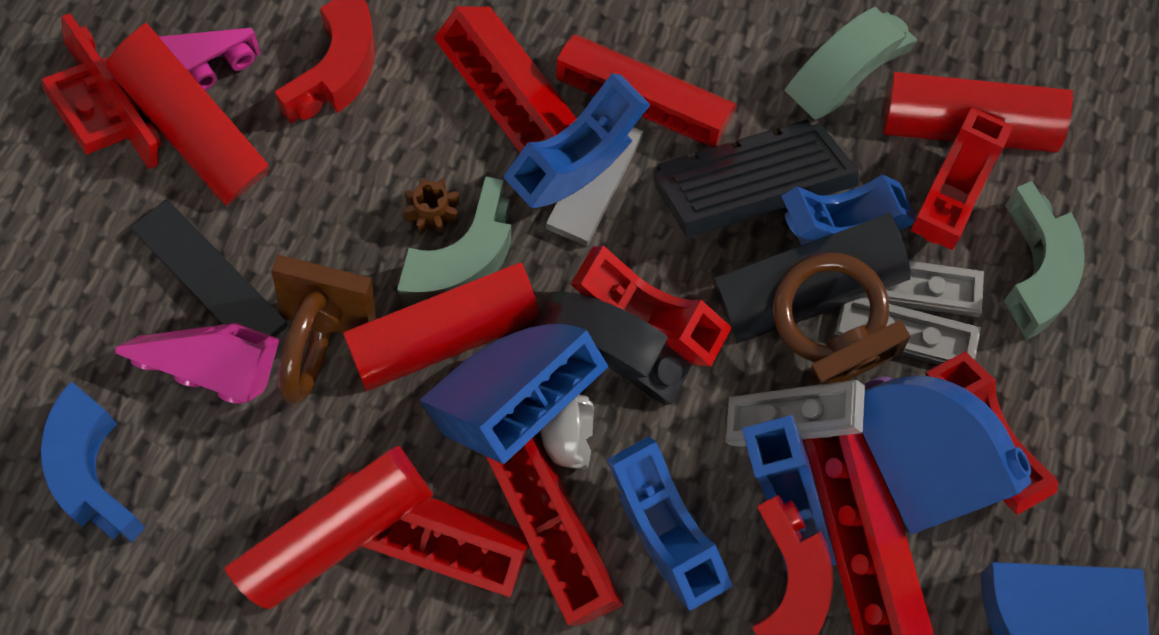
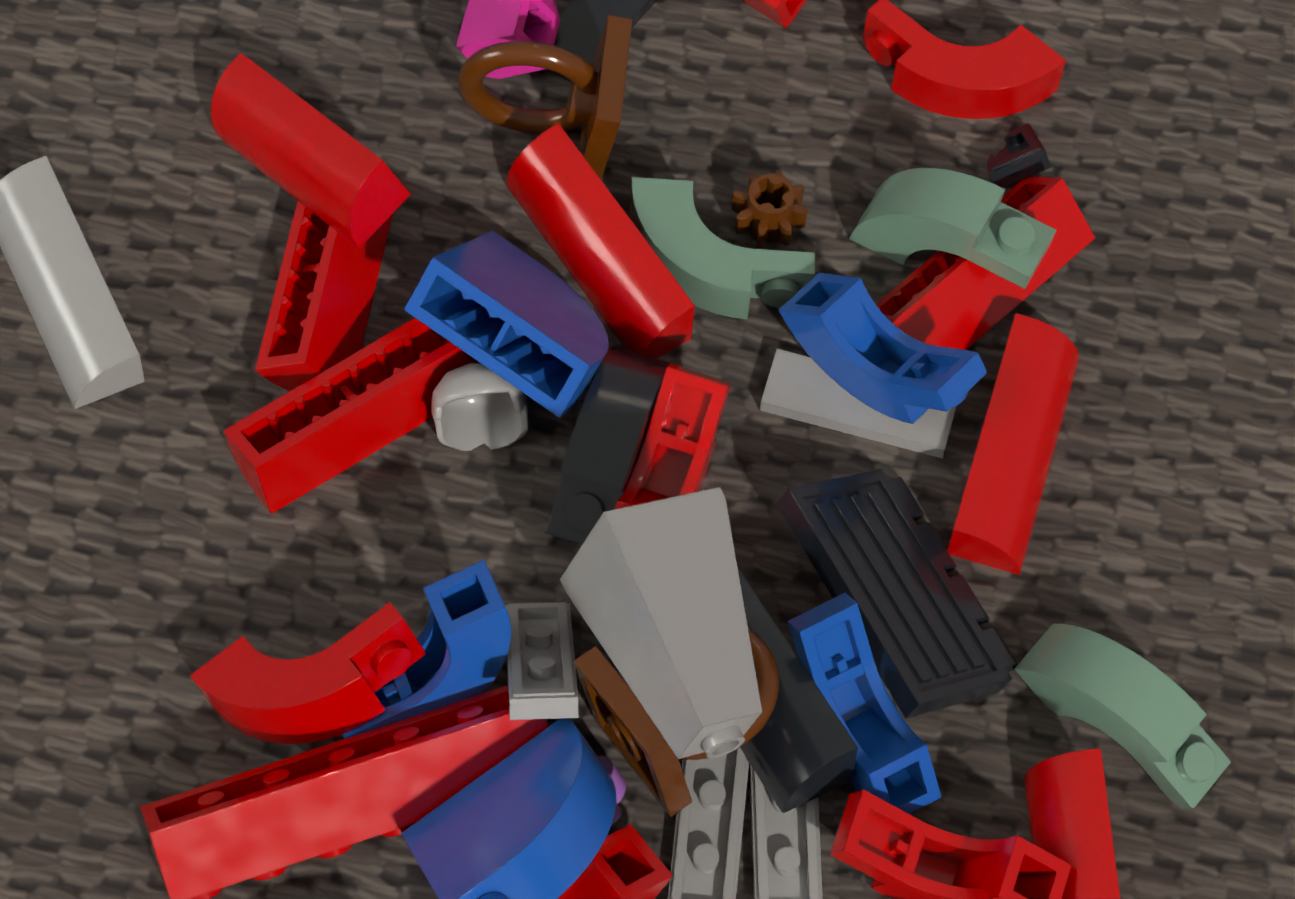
camera: 80 degrees right, 5 degrees down
(417, 39) = (1019, 158): none -> black tile
(474, 83) = (955, 216): none -> sand green arch
(665, 526) = (349, 554): blue arch -> none
(811, 300) = (672, 617): none -> light grey slope

